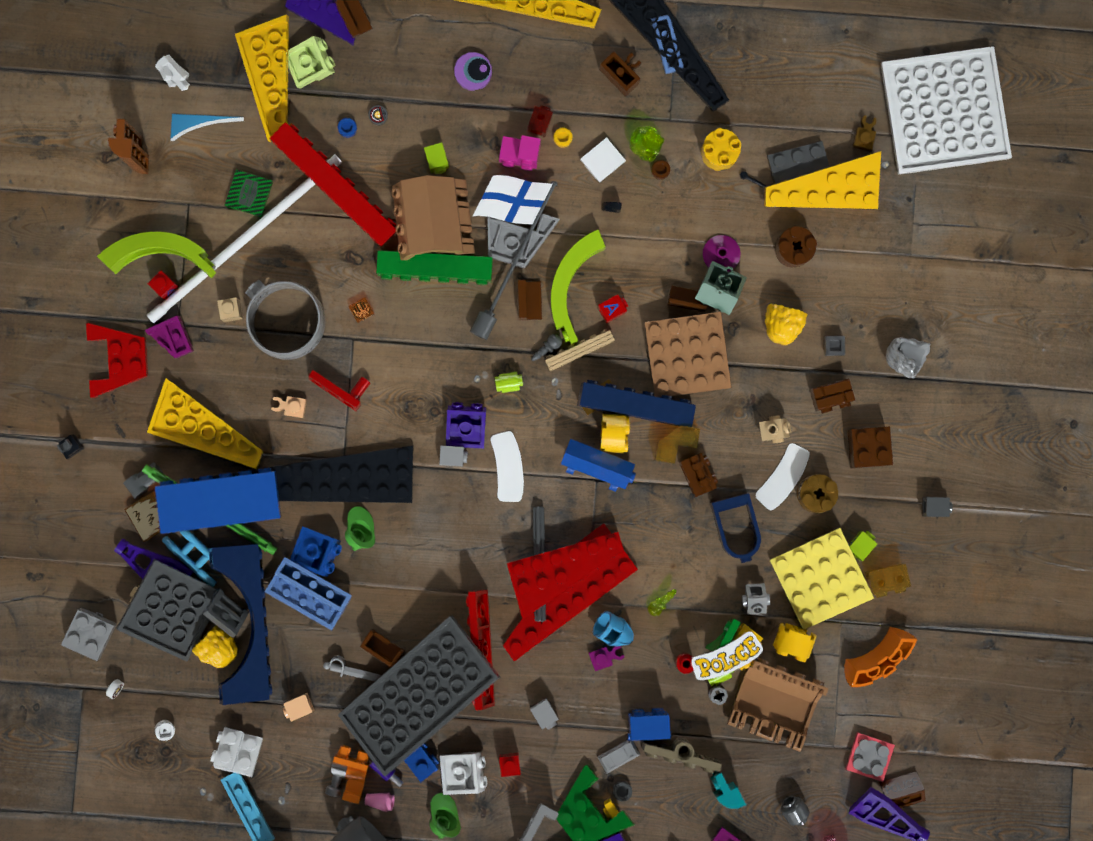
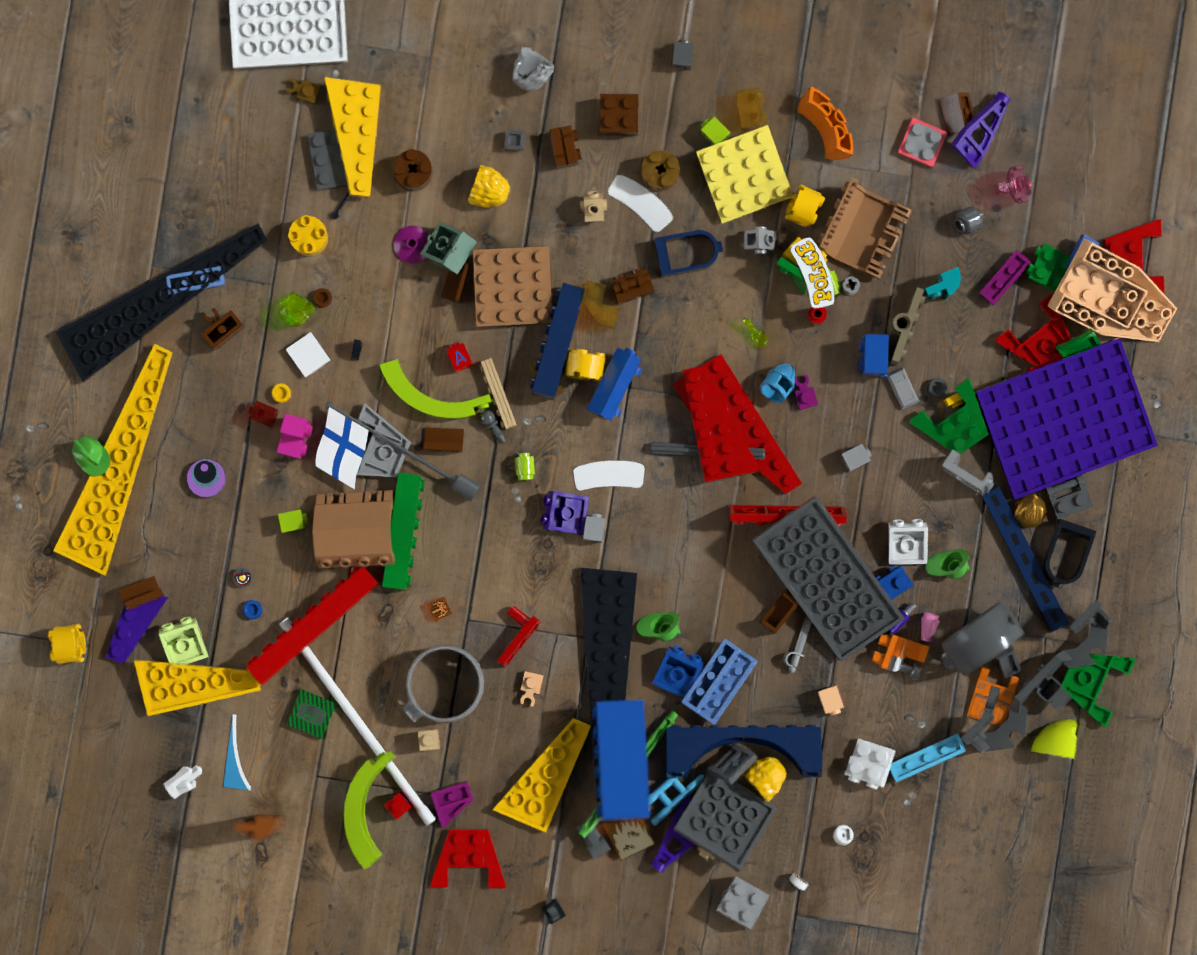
camera: 80 degrees left, 0 degrees up
(509, 764) = (903, 495): red brick -> none

